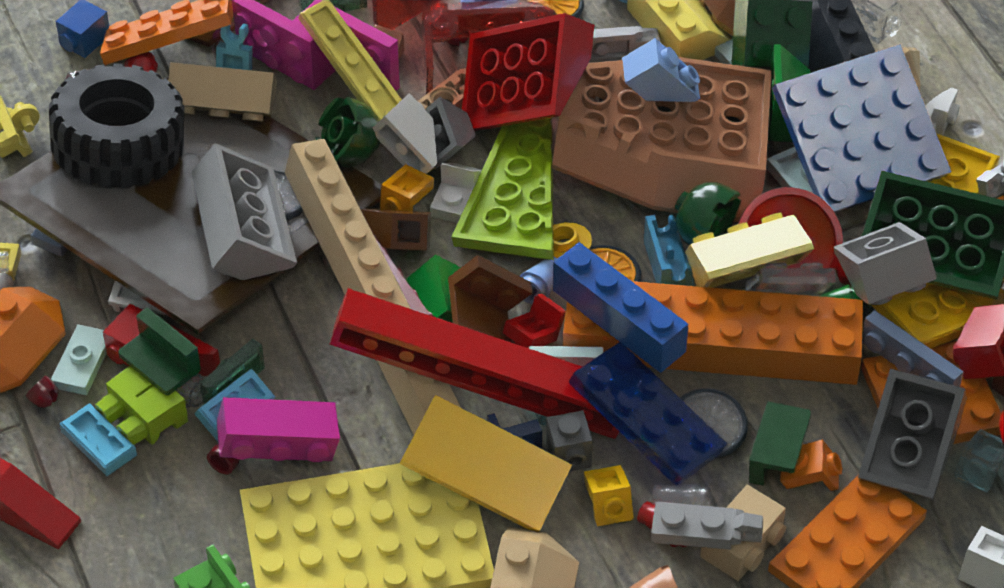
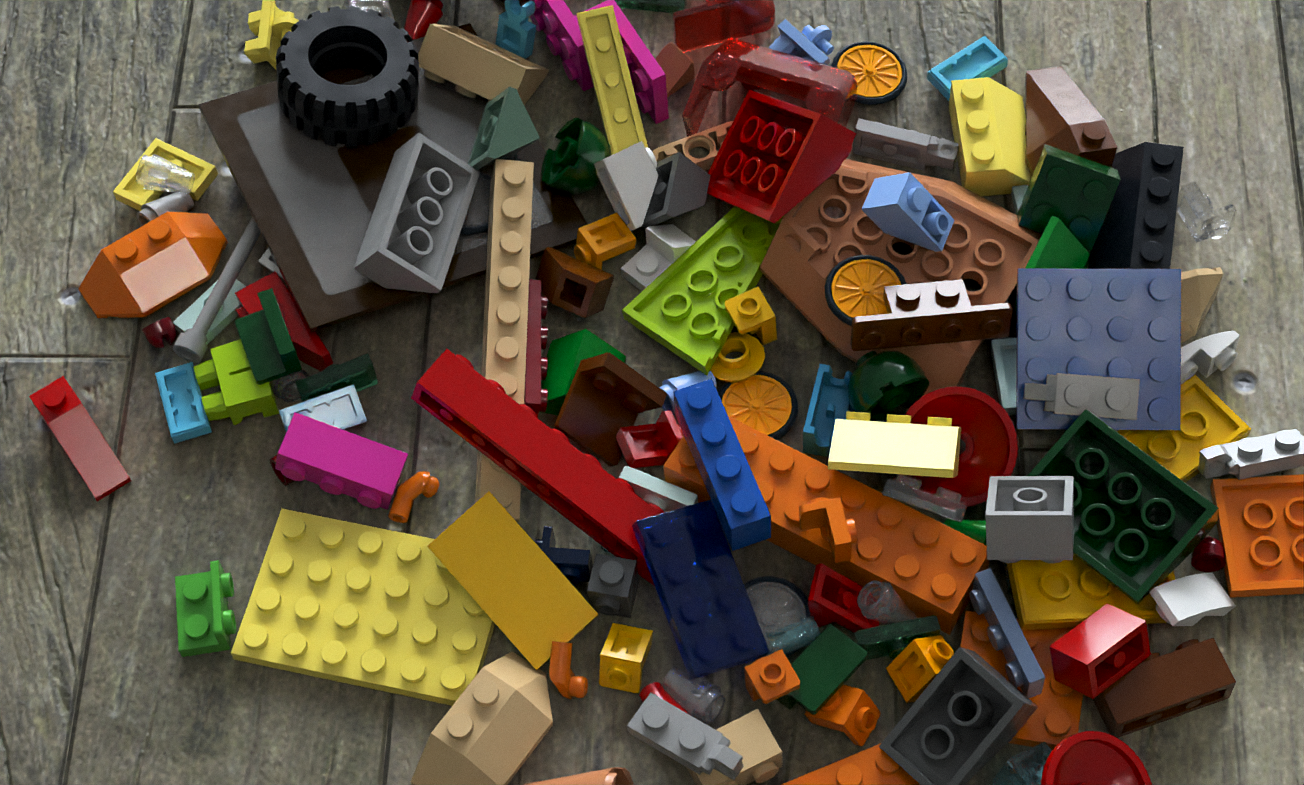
camera: 30 degrees right, 10 degrees up
(84, 385) = (192, 343): none -> light grey piece
(278, 123) = (502, 131): none -> sand green slope
(351, 429) = (408, 491): none -> orange arm
(563, 523) = (562, 674): none -> orange arm
(567, 201) = (753, 315): none -> yellow bracket
(658, 146) = (858, 285): none -> light orange wheel
(720, 146) = (927, 316): none -> reddish brown bracket
(737, 319) = (830, 513): none -> orange bracket
(740, 459) = (770, 677): none -> orange bracket
(741, 424) = (794, 635): none -> clear light blue pin
(763, 383) = (835, 600): none -> red slope
(800, 373) = (883, 604): none -> clear cone
(827, 394) = (895, 637): none -> clear green plate
(853, 410) = (919, 665): none -> light orange bracket
(865, 165) = (1074, 393): none -> light grey hinge

